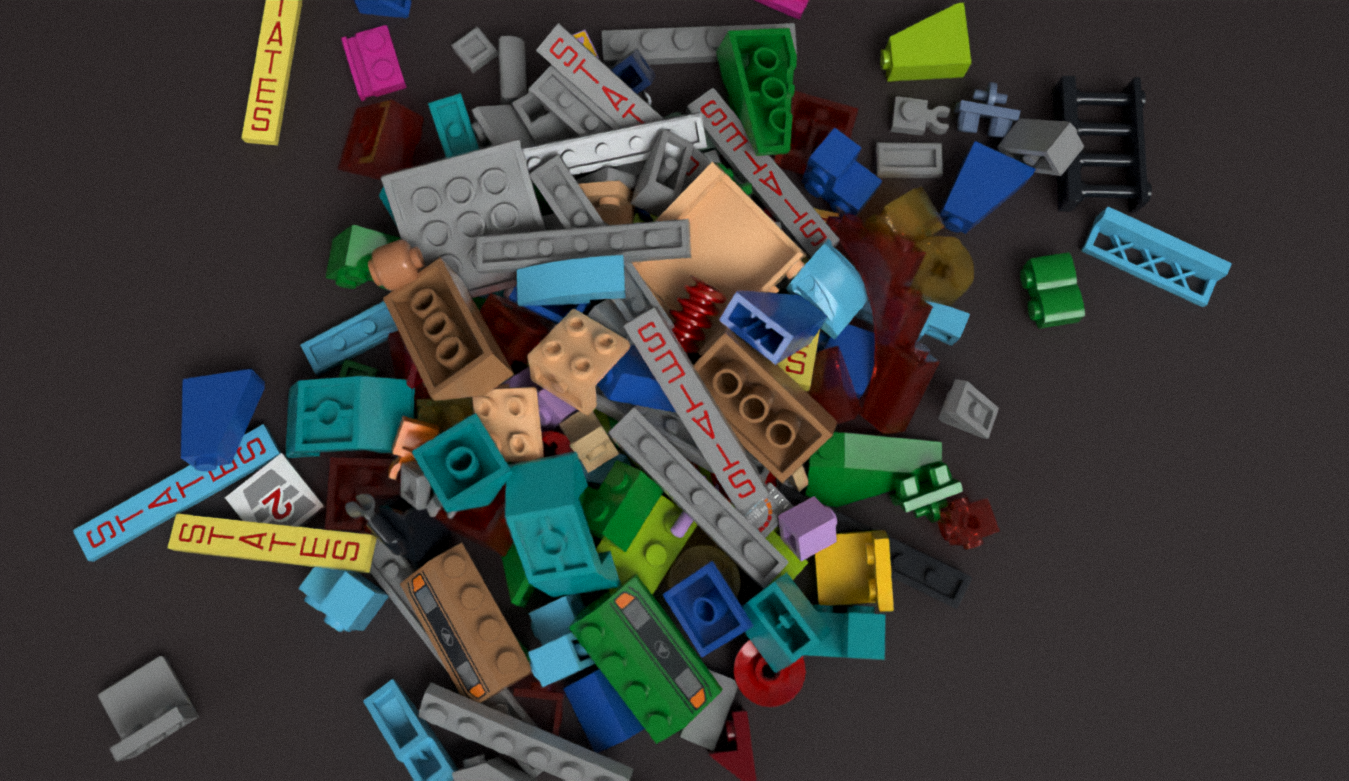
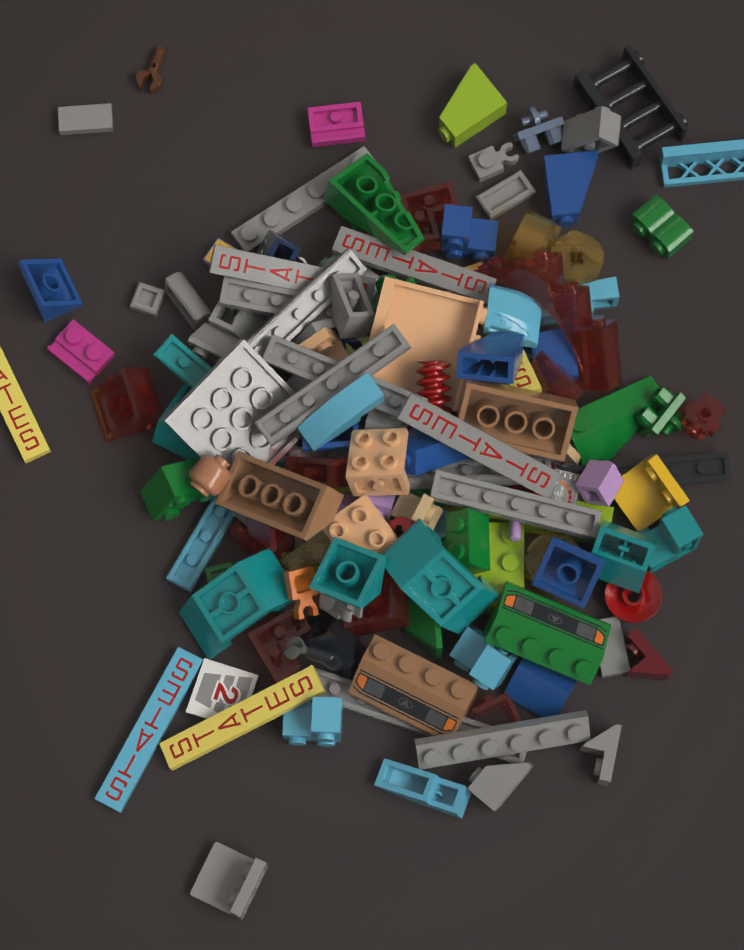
camera: 25 degrees left, 5 degrees down
(216, 416) = (144, 657): blue slope -> none
(414, 485) = (322, 611): light grey tile -> none
(968, 410) = (655, 342): light grey slope -> none

